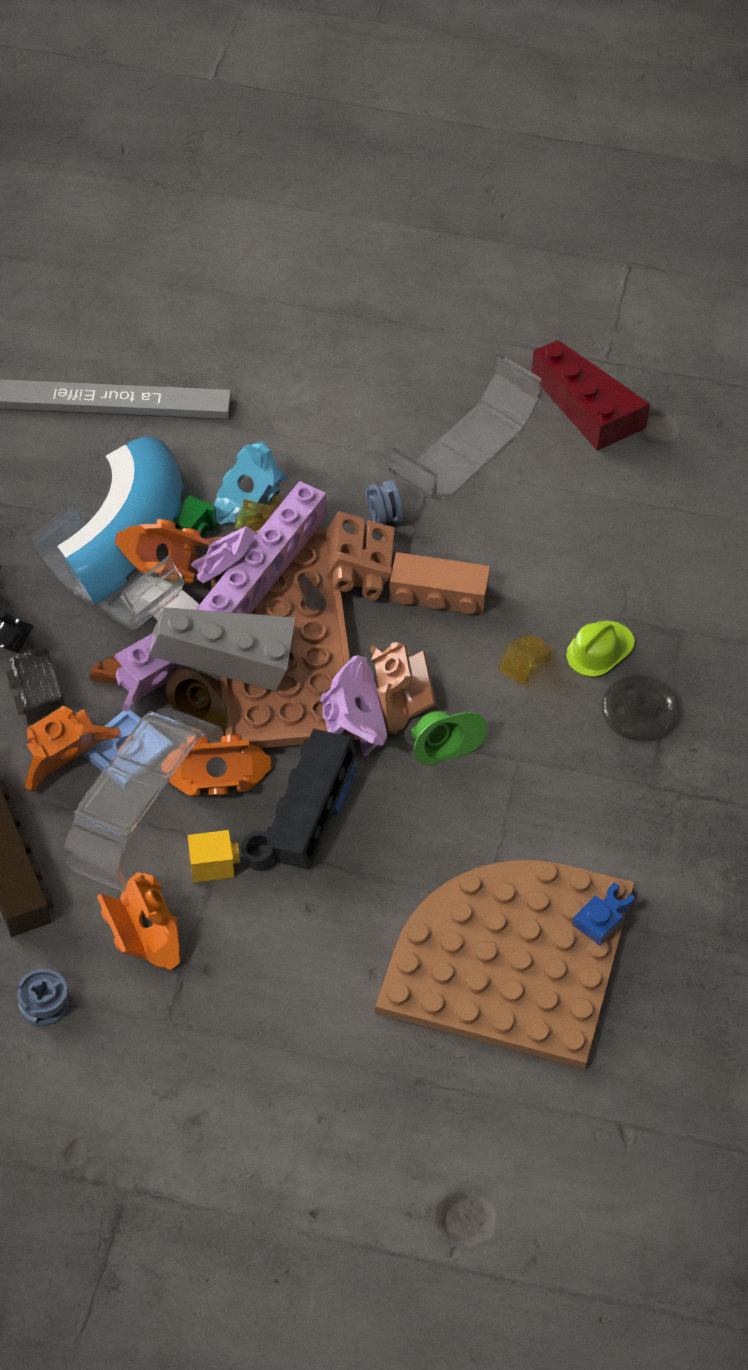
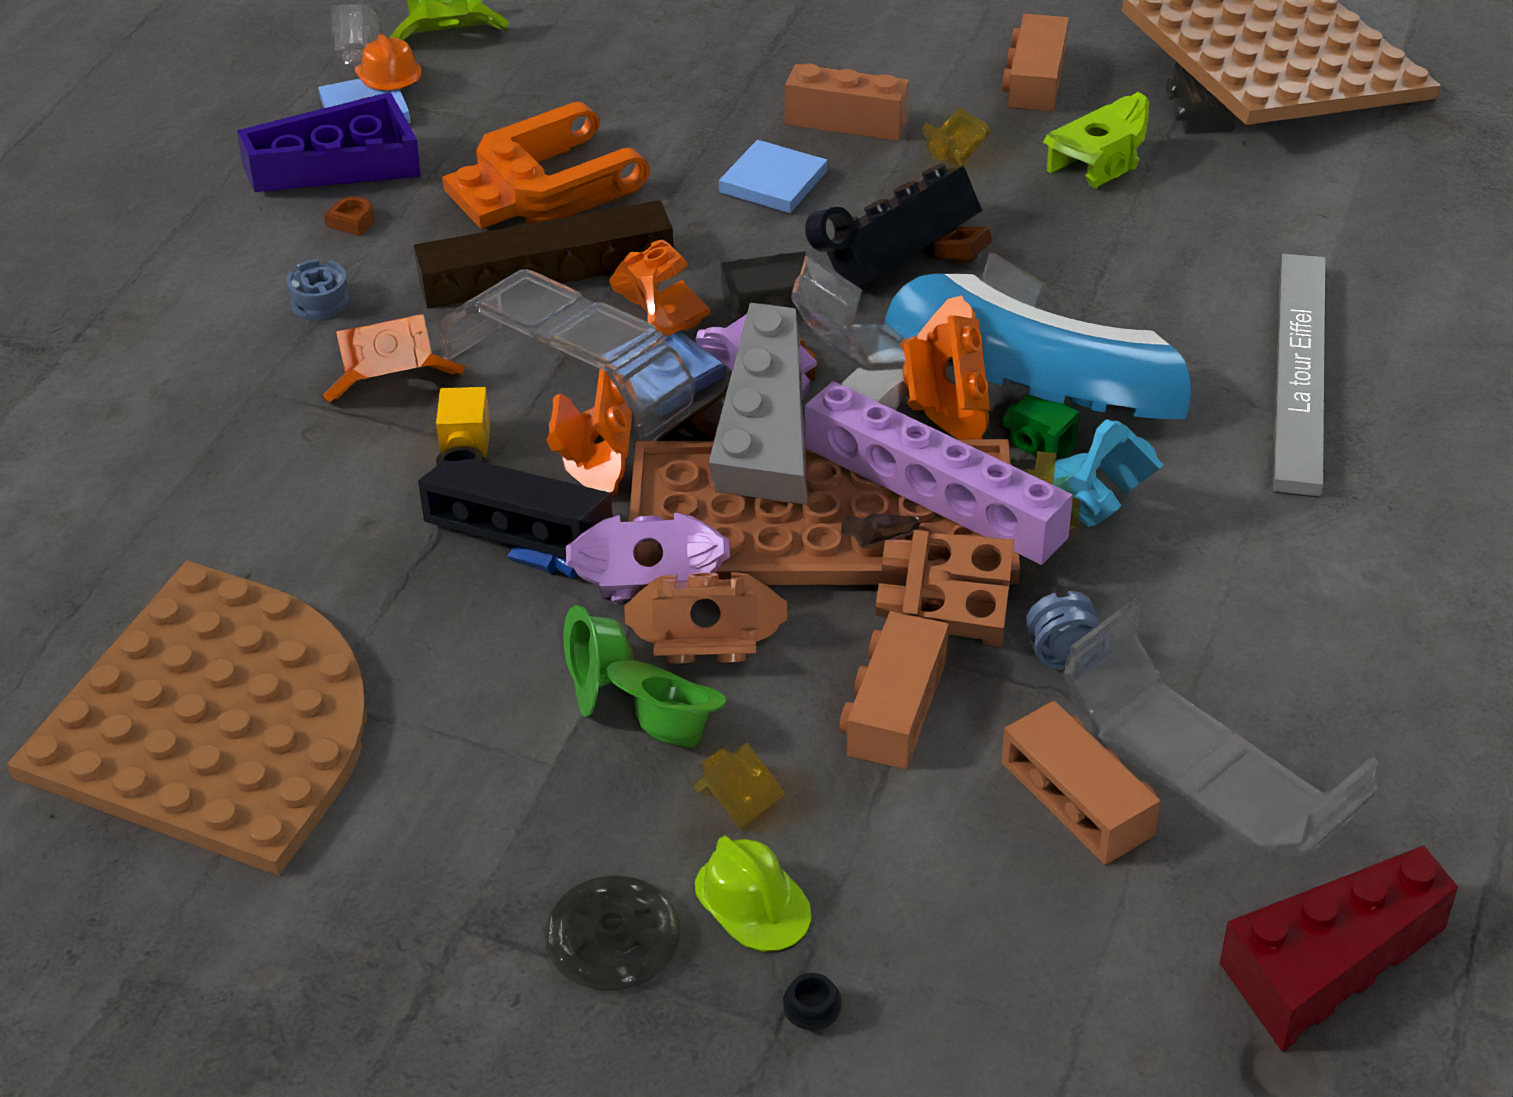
camera: 100 degrees right, 10 degrees down
(223, 553) = (928, 410): lavender slope -> none
(474, 687) = (665, 703): none -> bright green piece
(496, 498) = (1080, 782): none -> nougat brick
(602, 917) = (217, 795): blue plate -> none
(669, 609) = (812, 1002): none -> black plate

